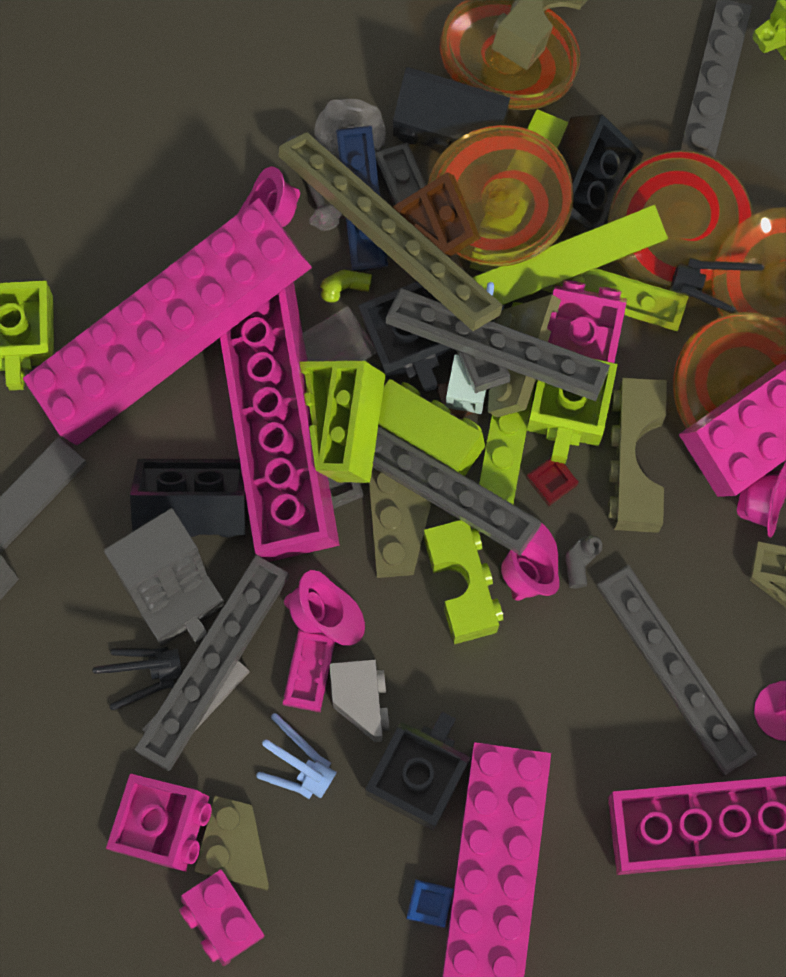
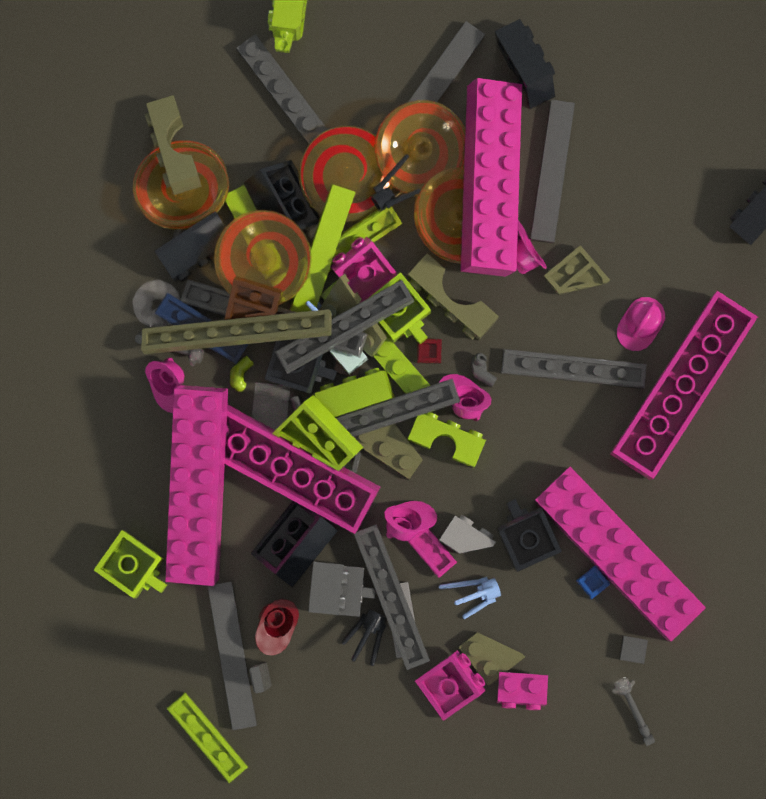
camera: 50 degrees left, 10 degrees up
(67, 550) = (276, 626): none -> dark red piece

